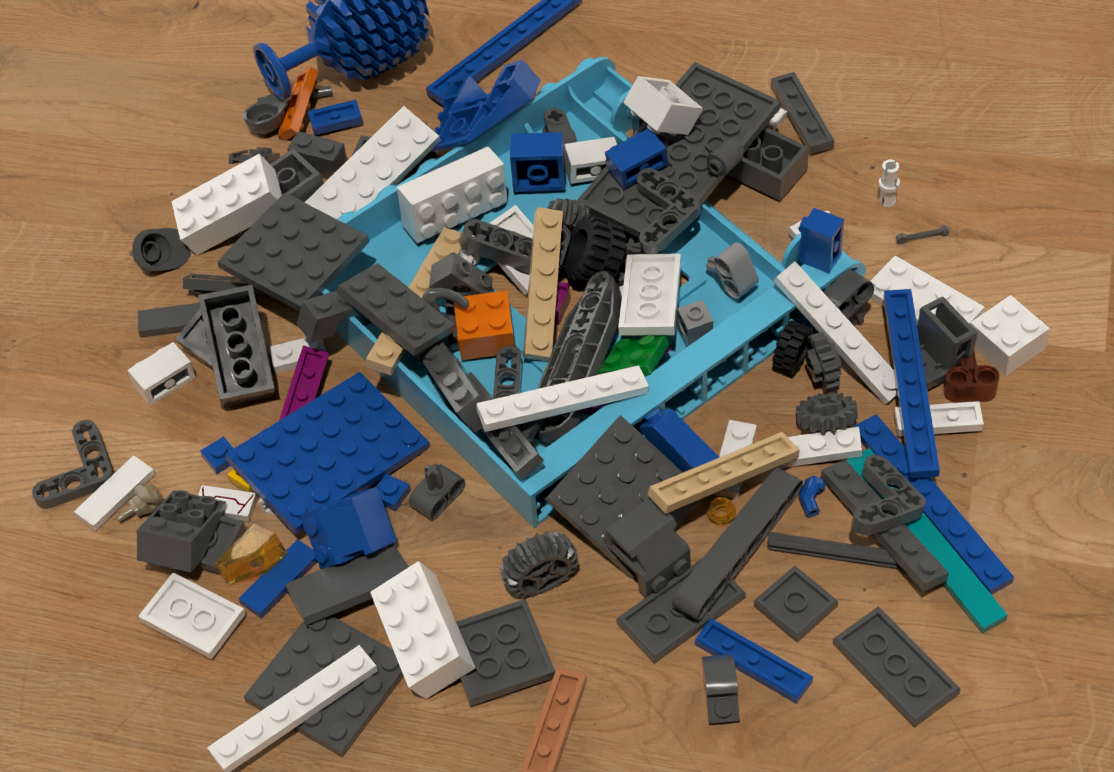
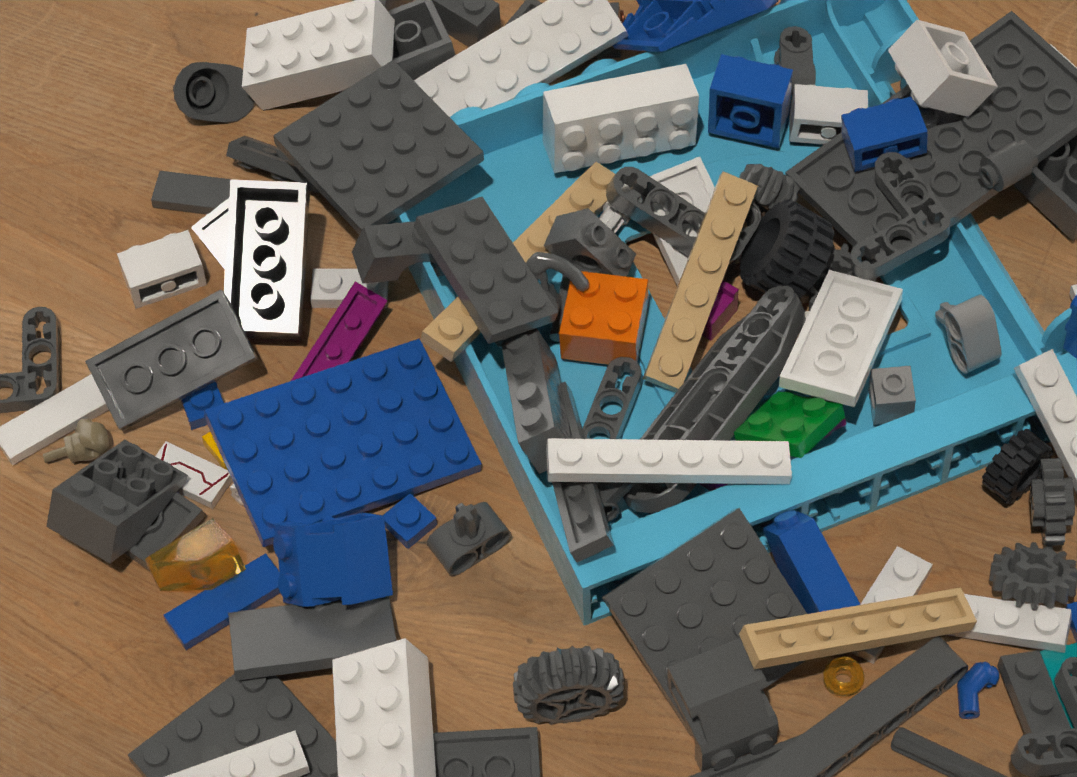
camera: 15 degrees right, 5 degrees up
(190, 428) = (171, 360): none -> dark grey plate
(192, 615) = (96, 621): white plate -> none

